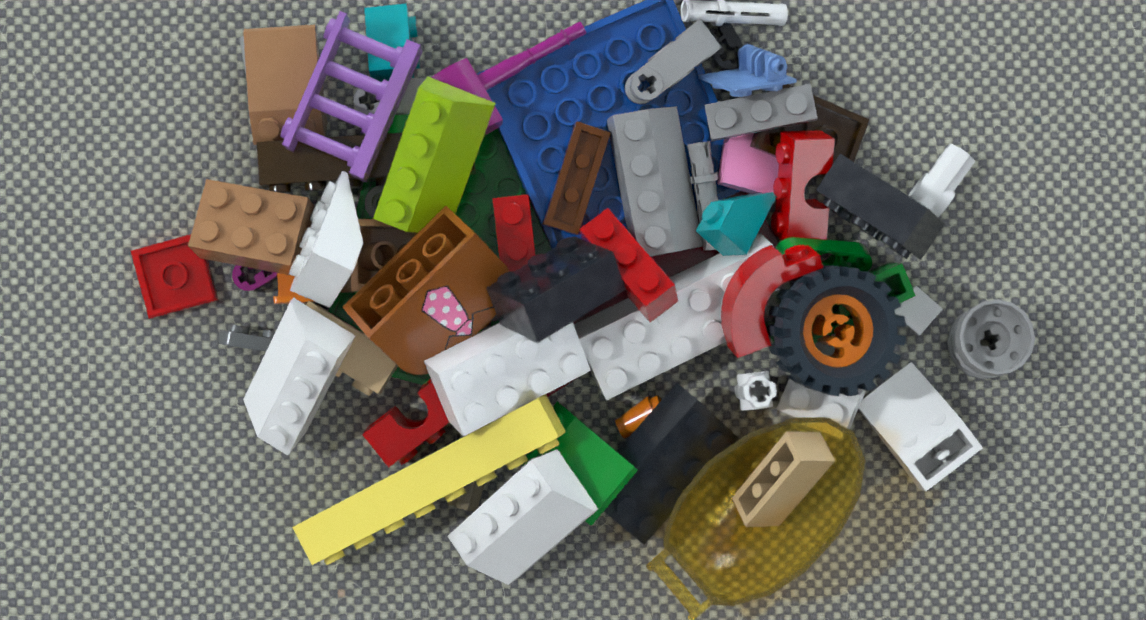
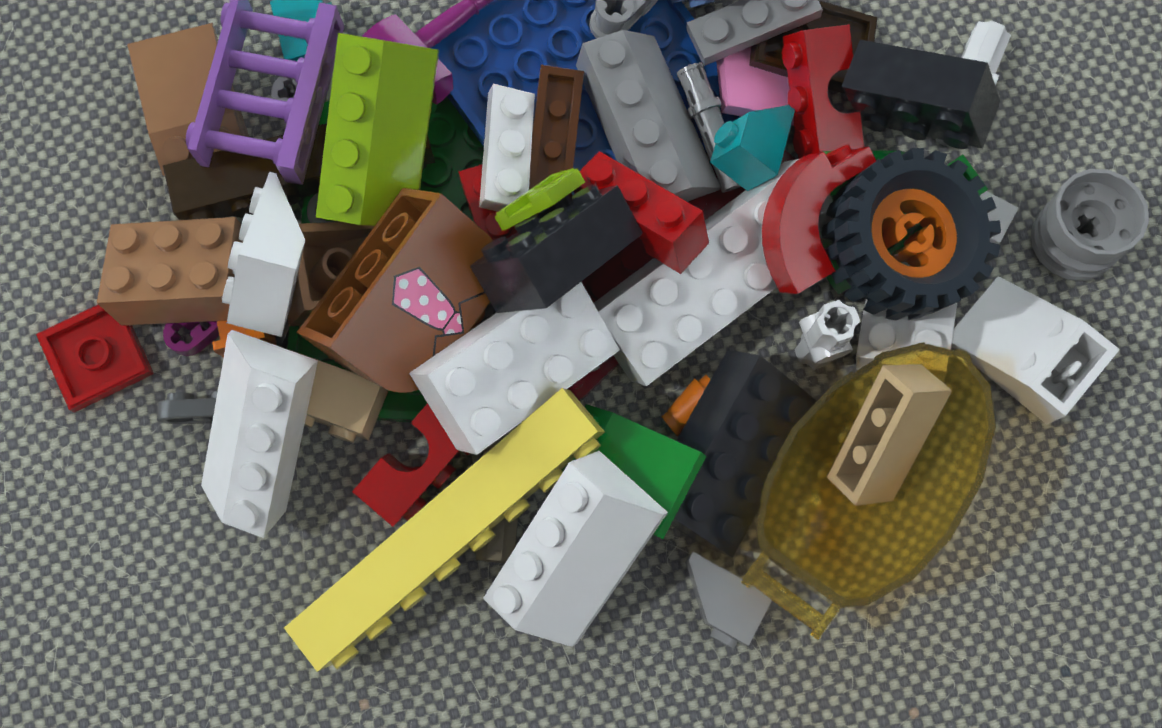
camera: 10 degrees left, 10 degrees down
(535, 189) = (506, 147): none -> white plate
(552, 241) = (540, 197): none -> lime tile
(631, 578) = (726, 602): none -> light grey slope

